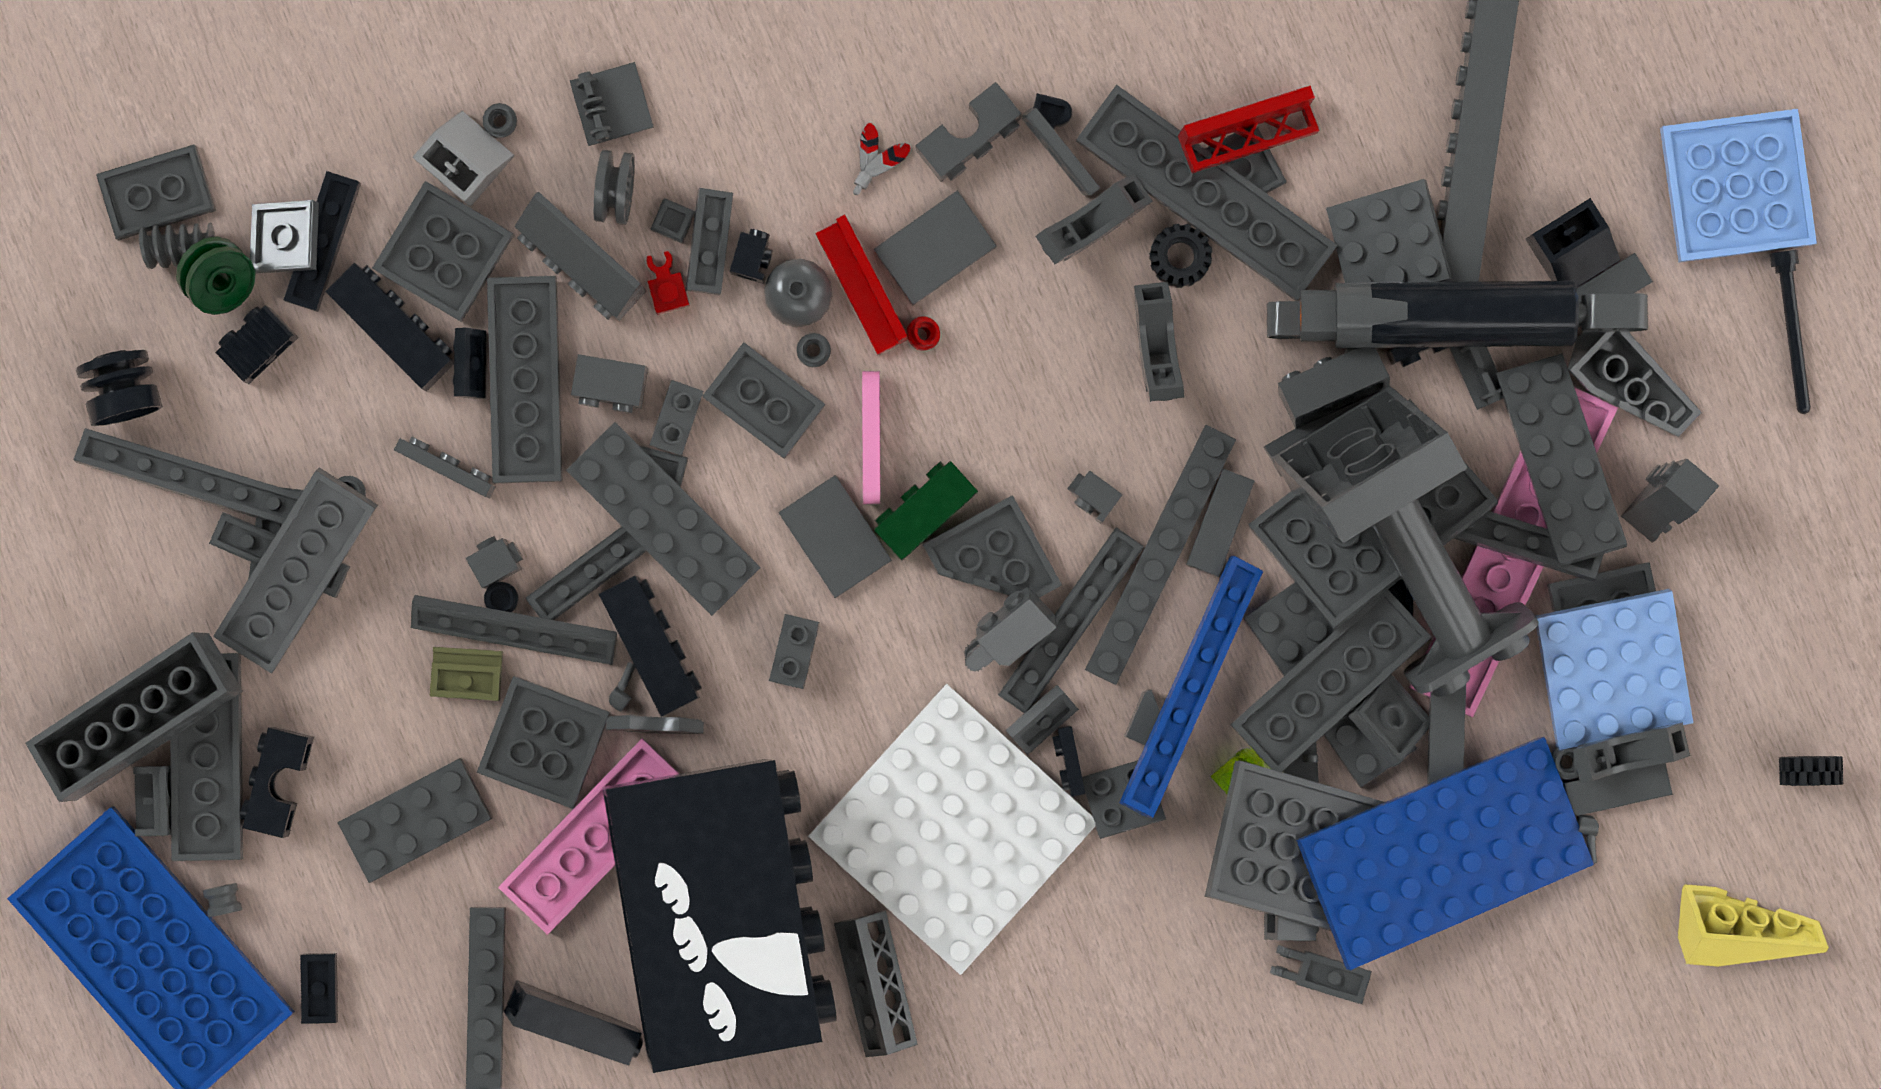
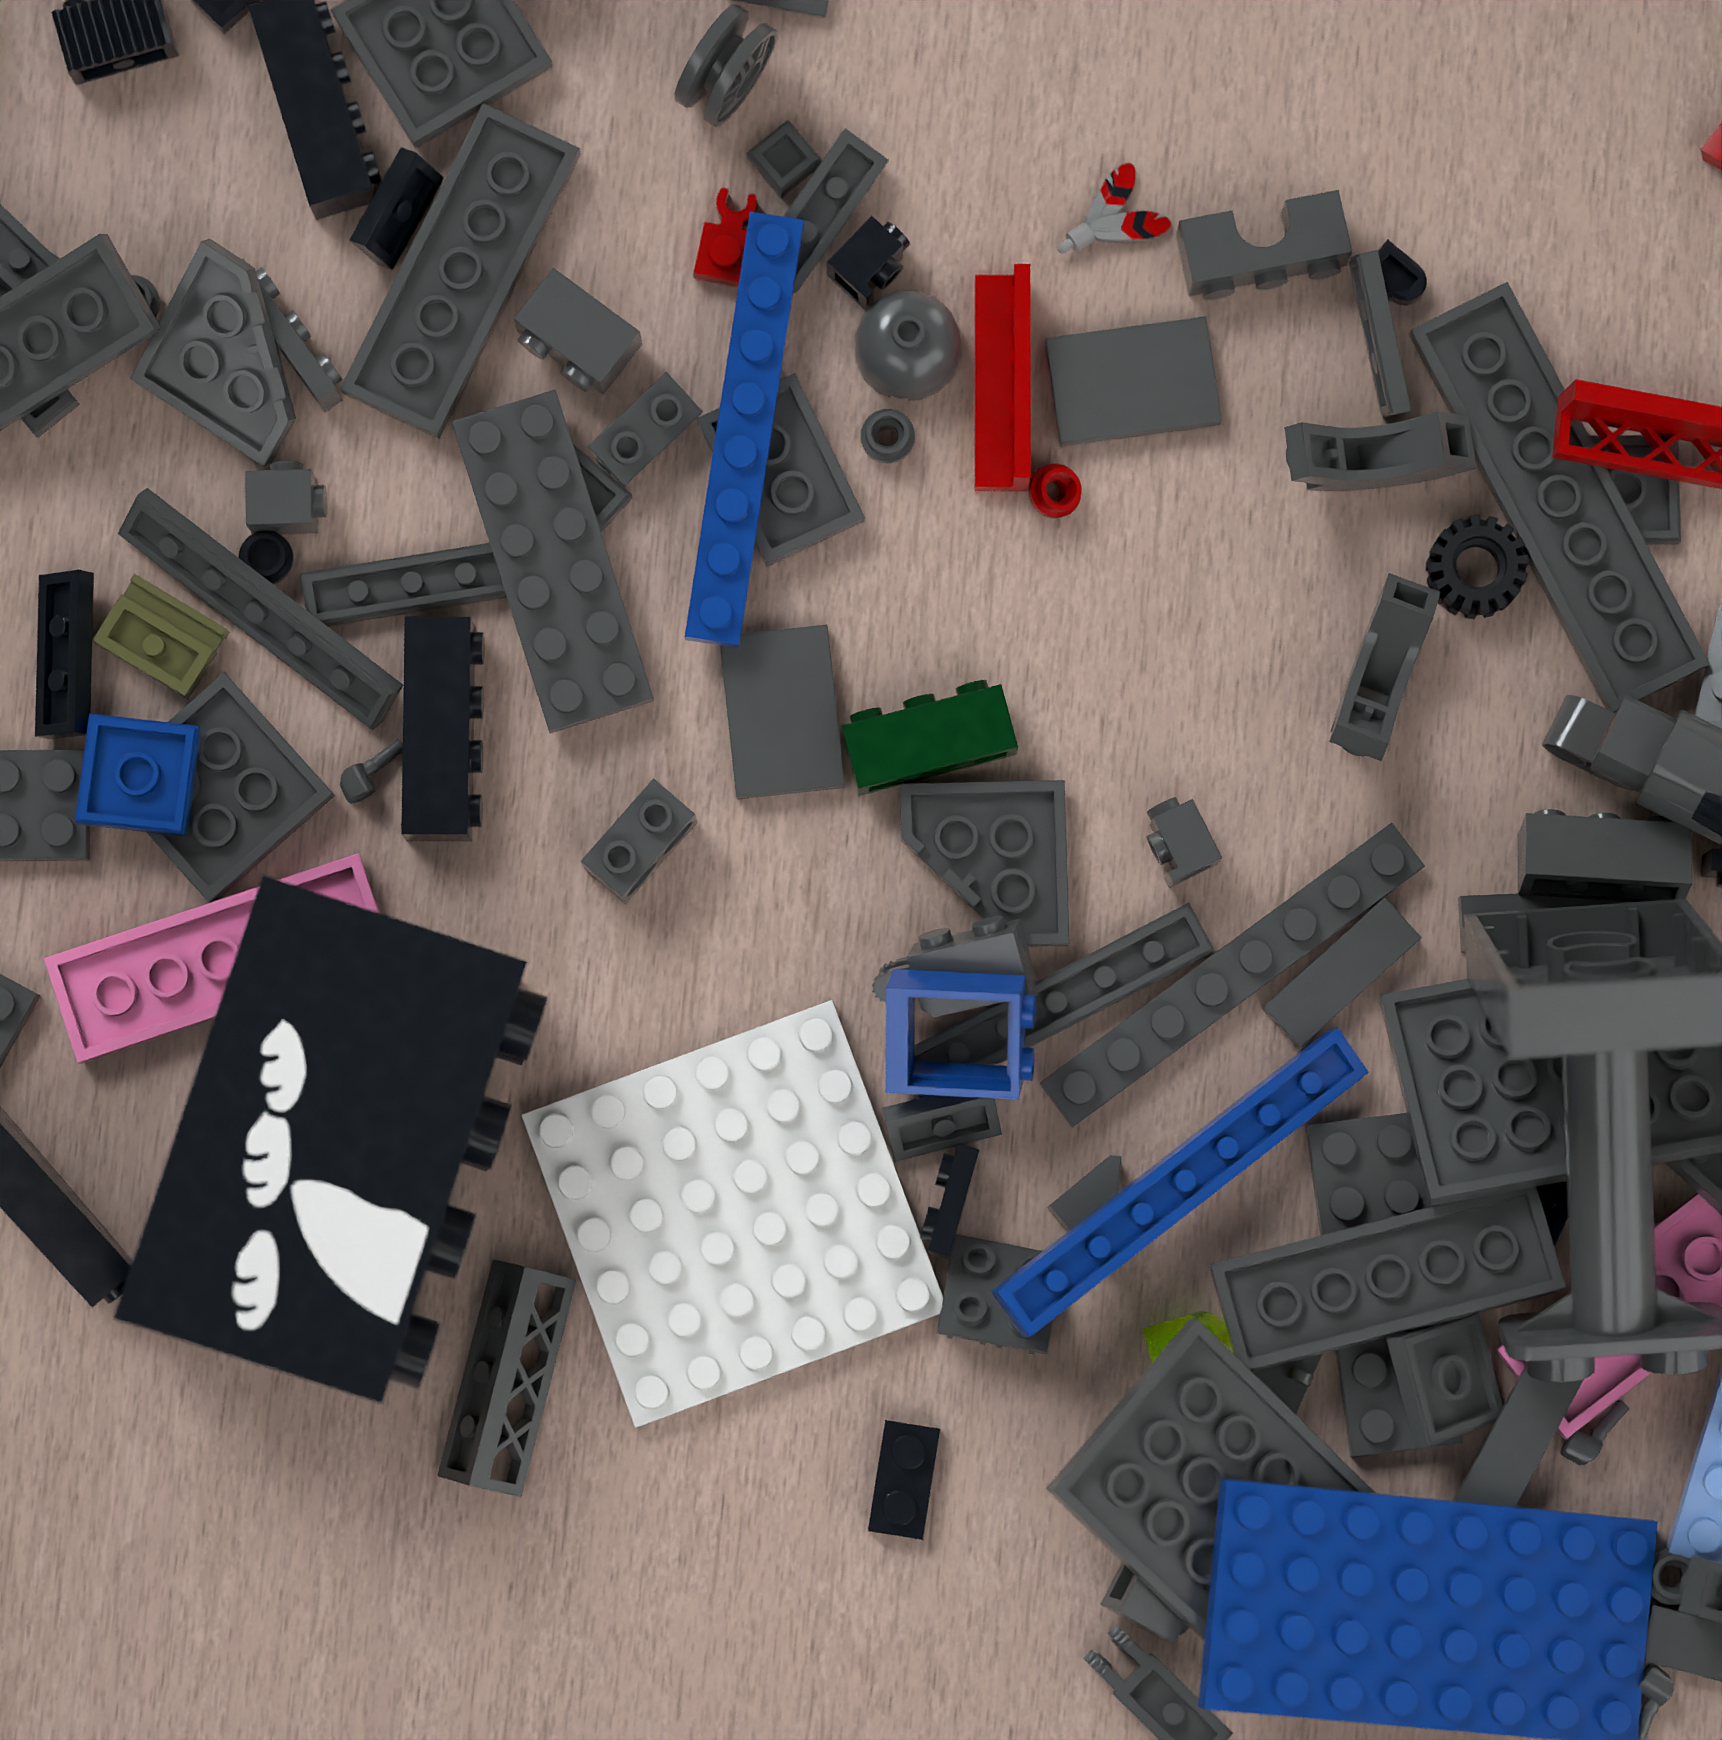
camera: 30 degrees right, 5 degrees down
(417, 499) = (221, 356): none -> dark grey plate
(418, 712) = (64, 654): none -> black plate
(496, 758) = (138, 775): none -> blue tile
(579, 257) = (626, 139): dark grey slope -> none
(660, 725) = (387, 843): dark grey tile -> none
(732, 389) = (744, 430): none -> blue plate
(871, 436) = (905, 598): bright pink beam -> none
(1038, 694) = (956, 1079): none -> blue window
(1122, 926) = (903, 1479): none -> black plate
(1485, 716) = (1584, 1447): none -> dark grey hand

